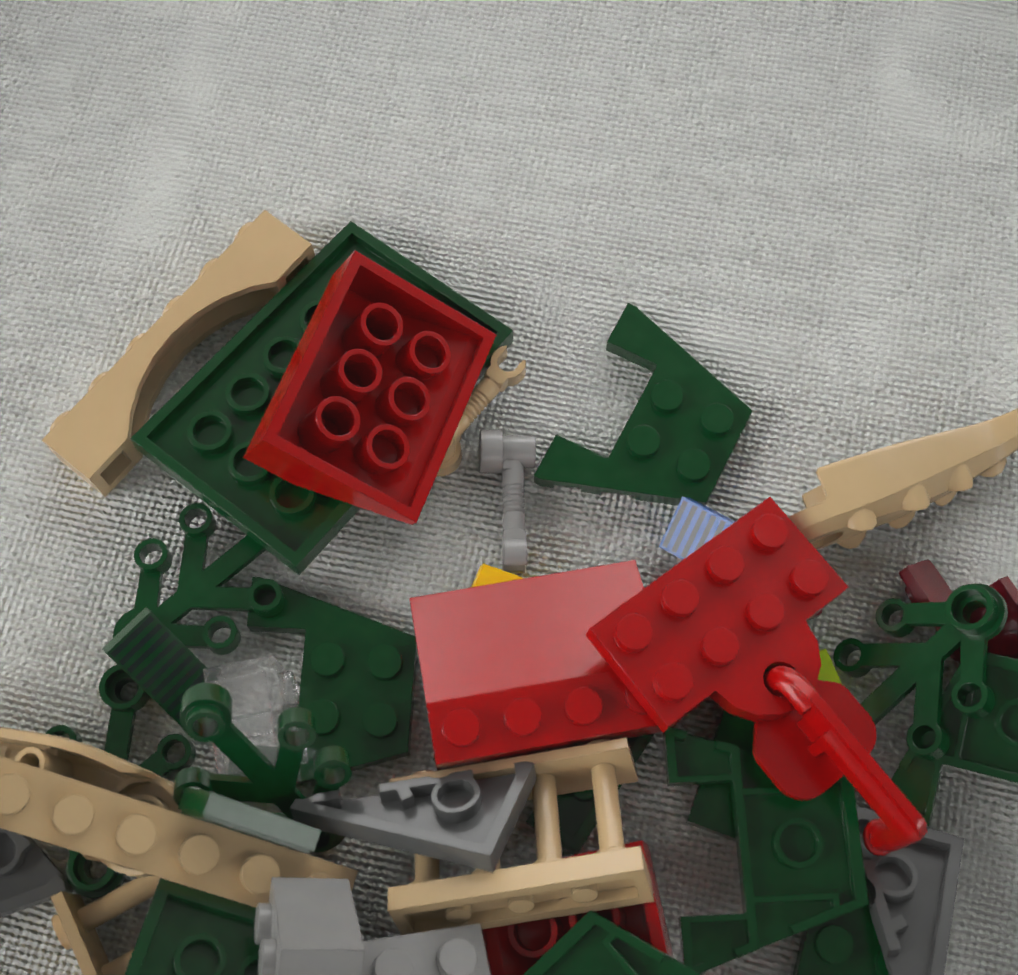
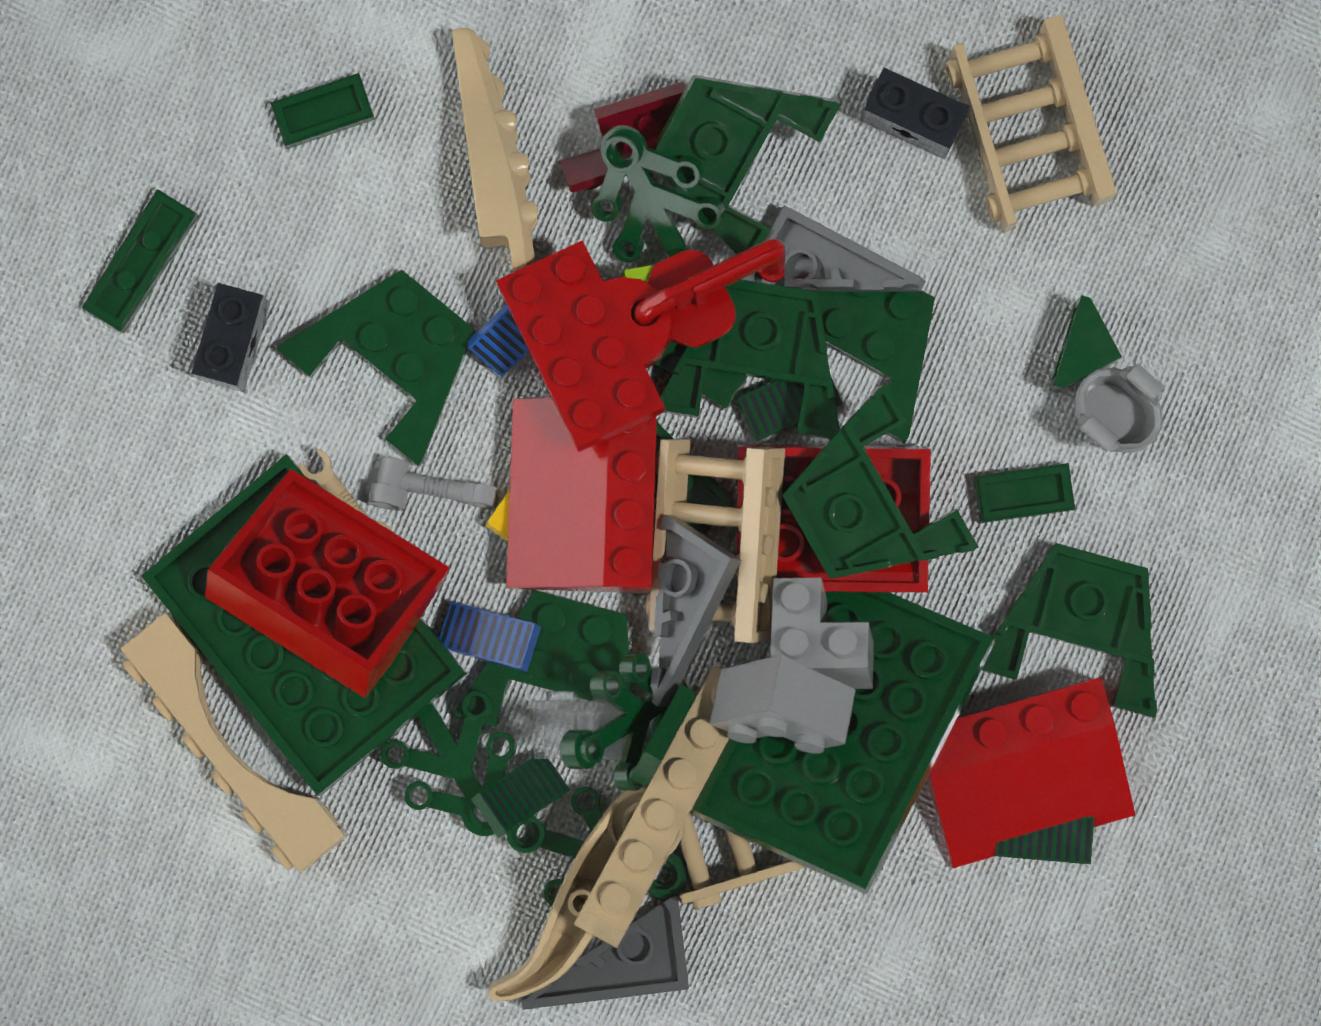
camera: 80 degrees left, 15 degrees up
(349, 595) = (489, 636): none -> tile
(628, 251) = (230, 337): none -> black brick
(686, 157) = (140, 261): none -> dark green tile
(705, 884) = (774, 408): none -> tile
(903, 296) = (322, 111): none -> dark green tile

